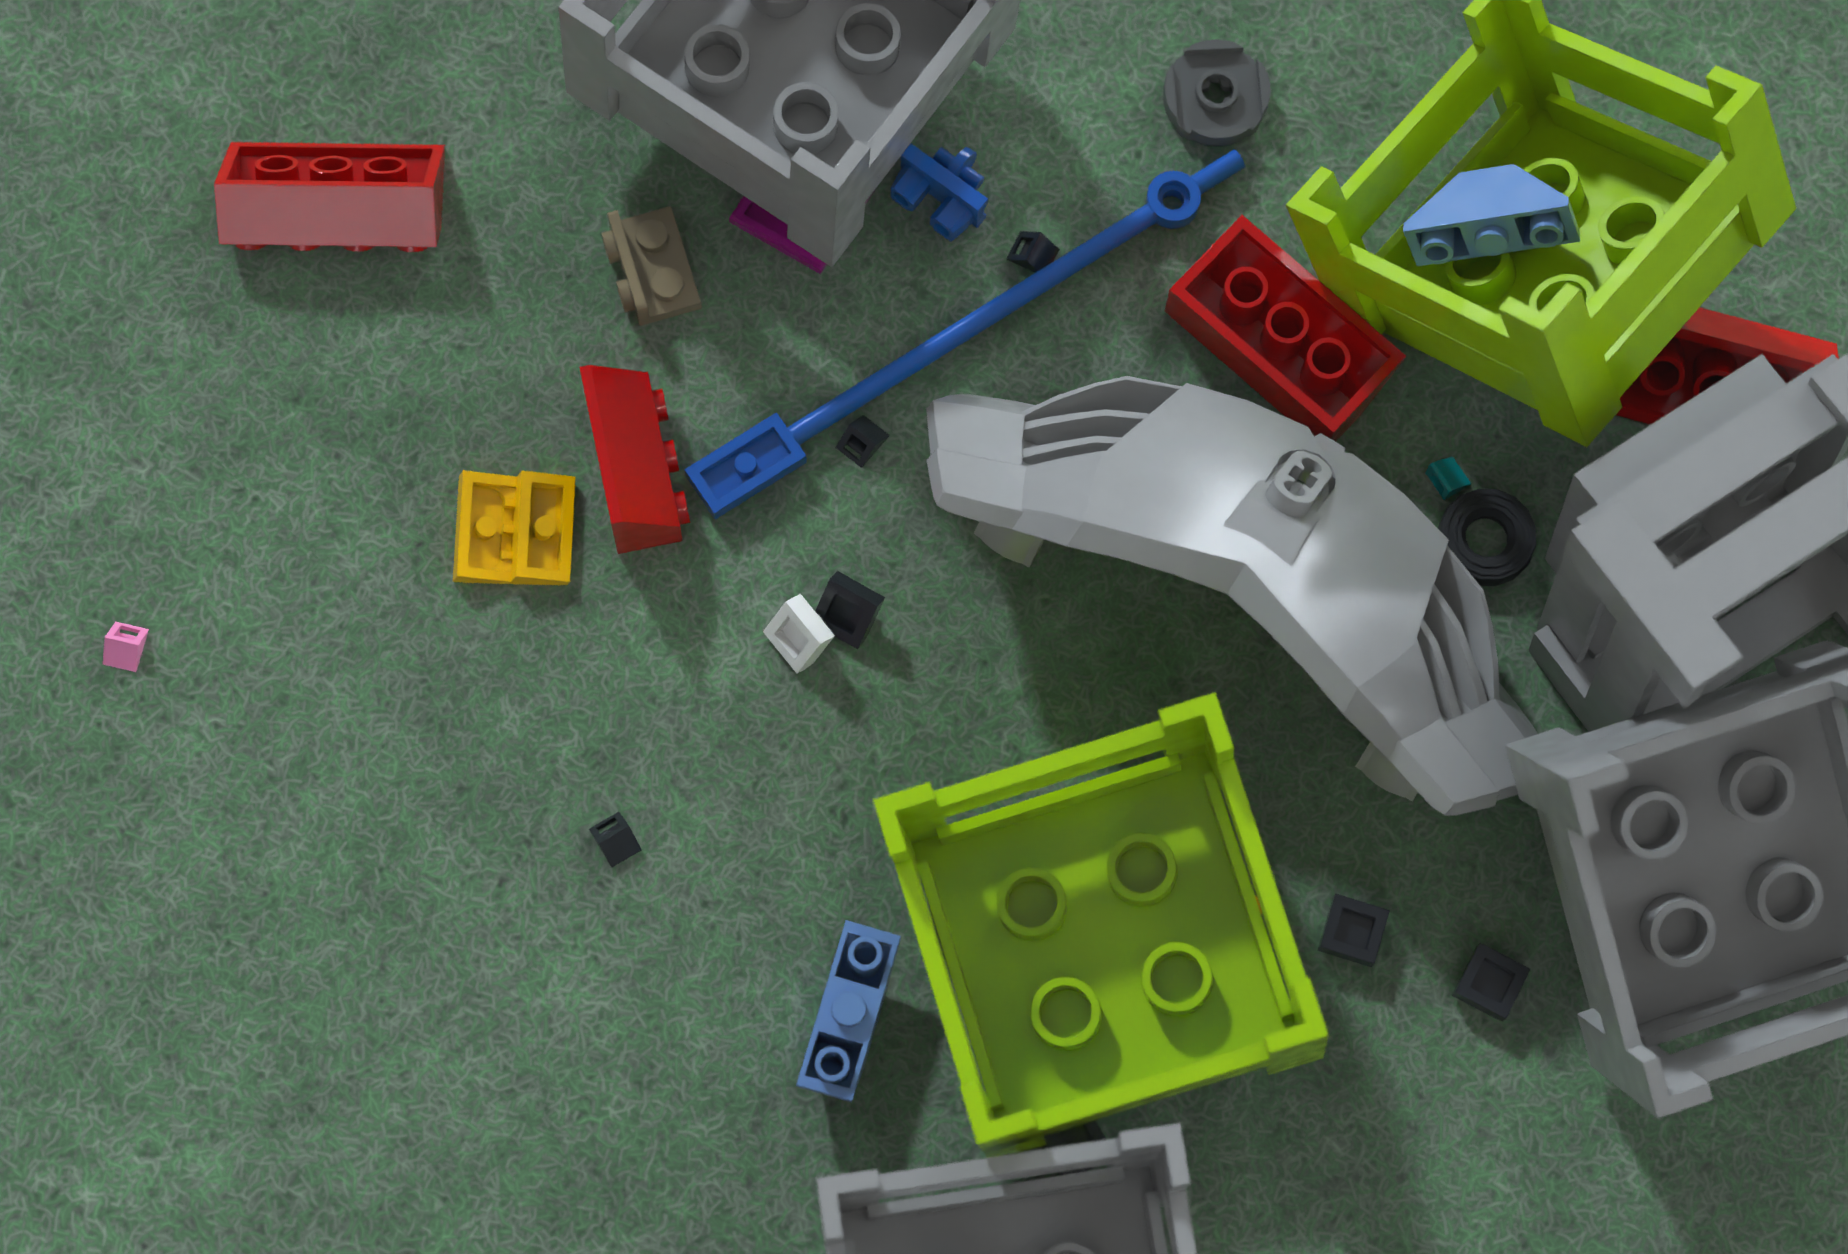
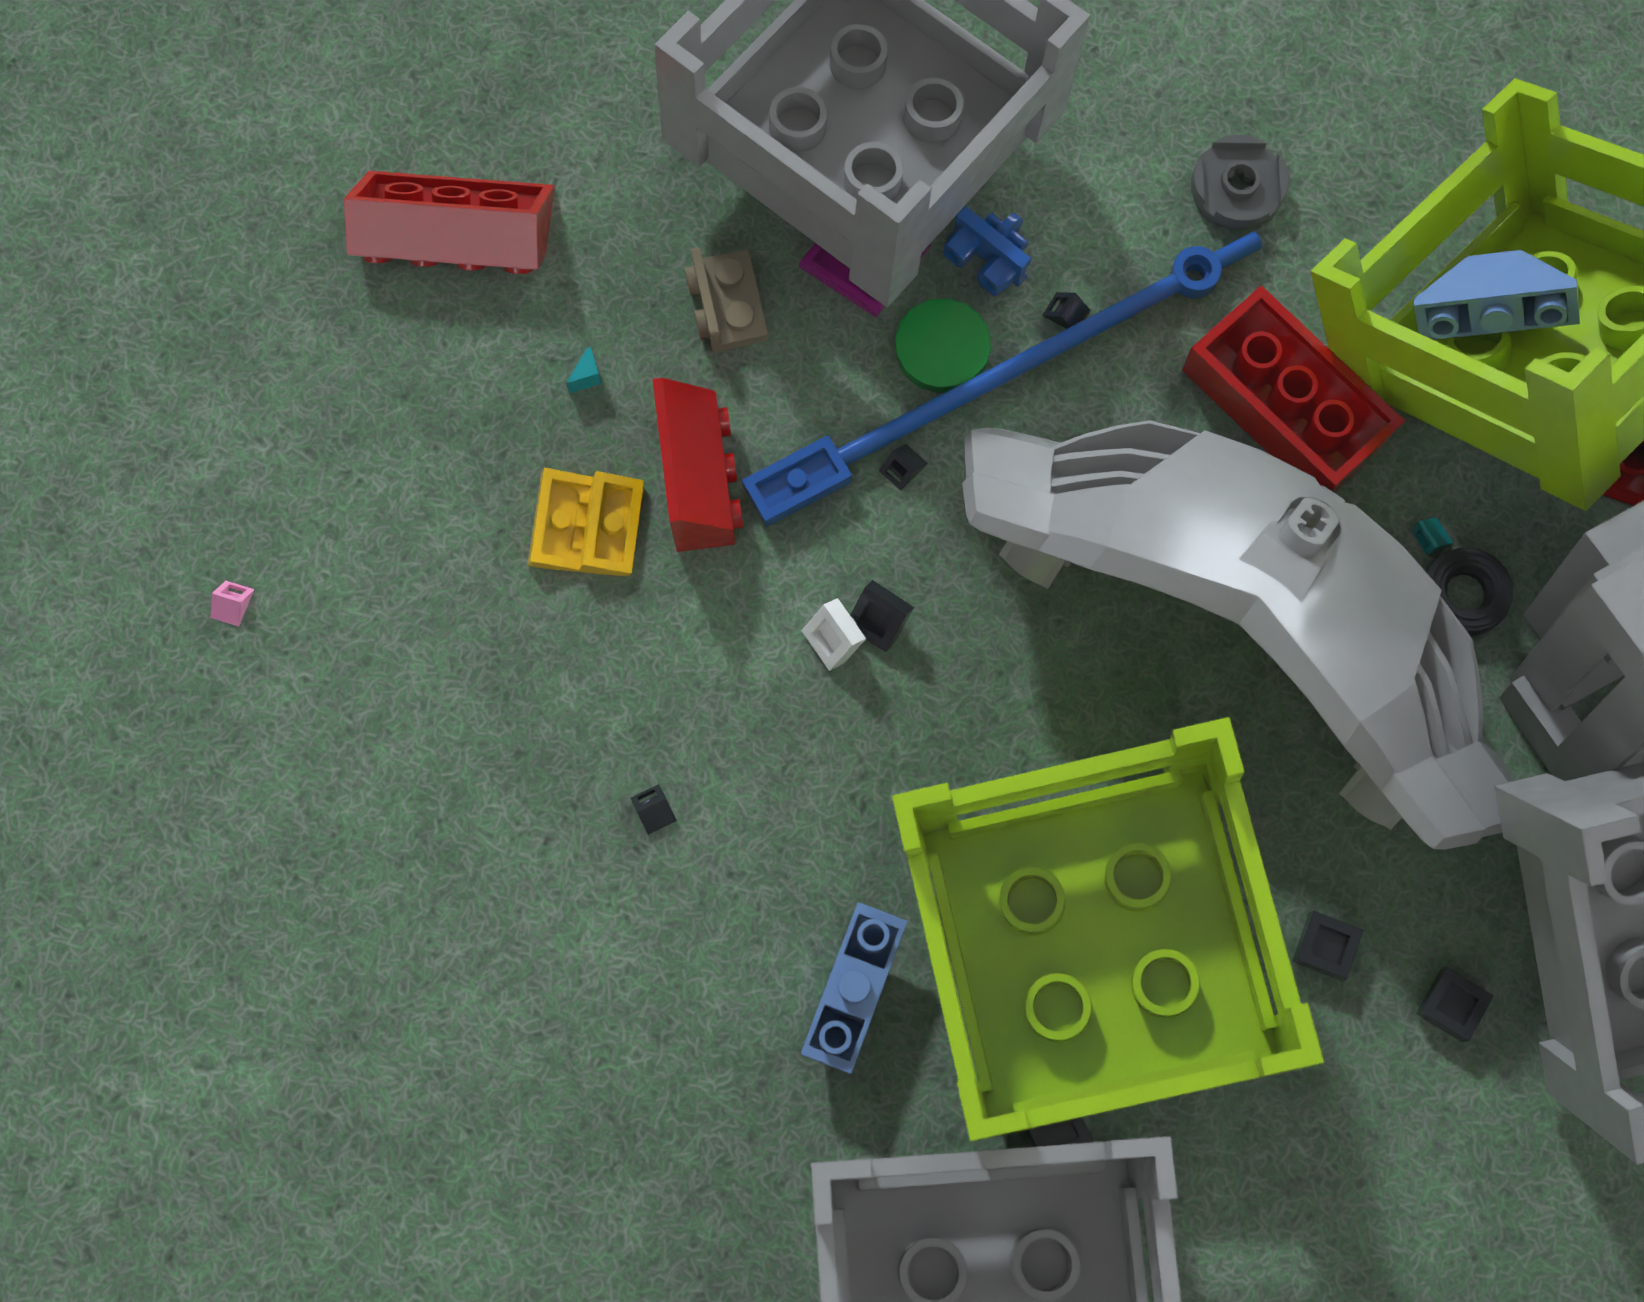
camera: 10 degrees right, 0 degrees up
(499, 361) = (585, 373): none -> teal piece
(896, 300) = (942, 344): none -> green tile

